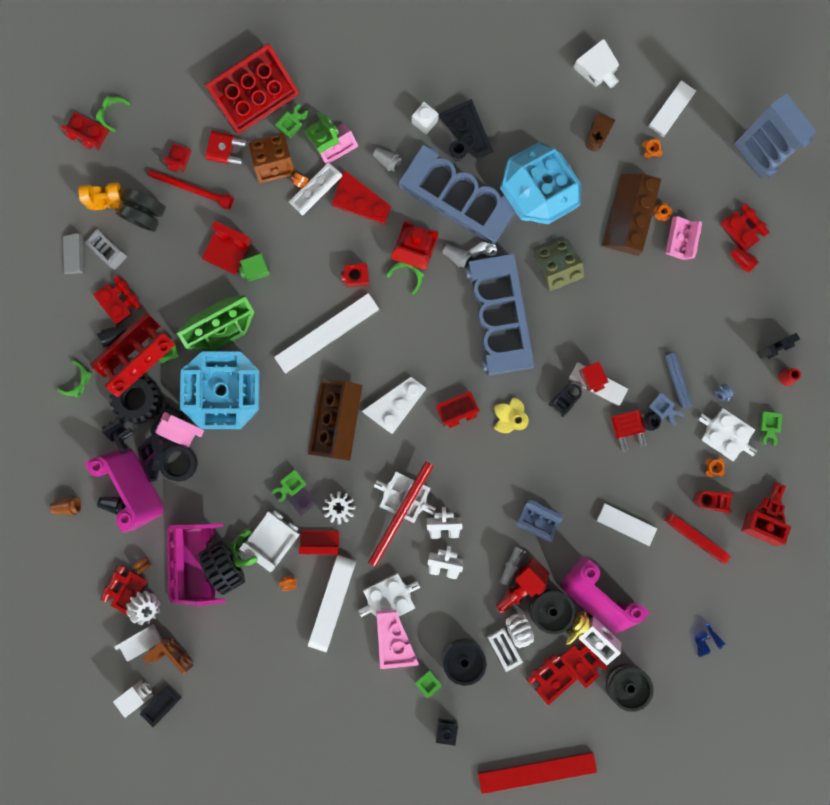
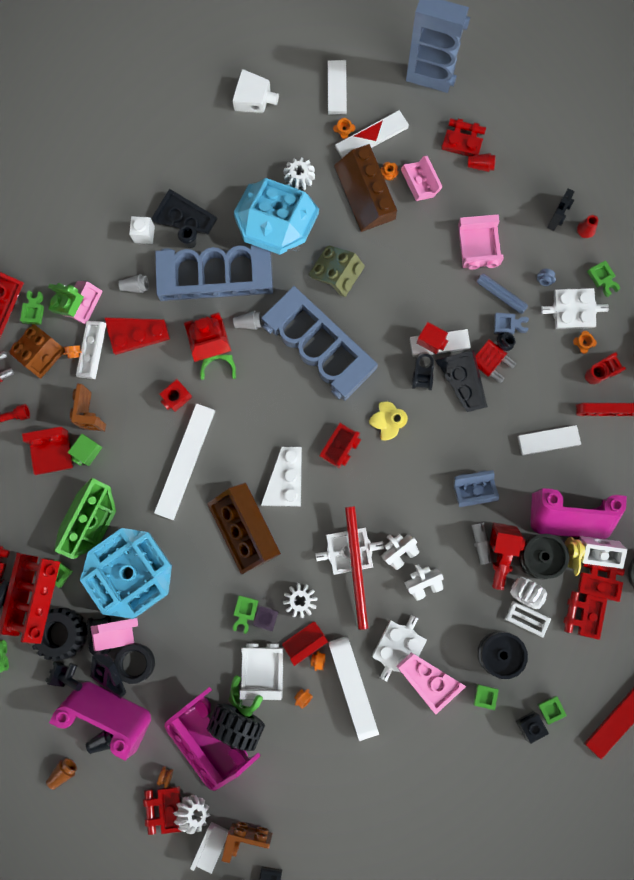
camera: 25 degrees left, 5 degrees down
(270, 236) = (80, 412): none -> dark orange bracket
(319, 563) = (318, 661): none -> orange plate
(471, 730) = (552, 710): none -> bright green plate
(483, 248) = (266, 300): white arm -> none
(589, 168) = (292, 170): none -> white gear
(596, 426) = (465, 378): none -> black wing
(600, 129) = (292, 143): reddish brown piece -> none
(672, 171) = (374, 134): none -> white tile
(692, 325) = (480, 241): none -> bright pink panel

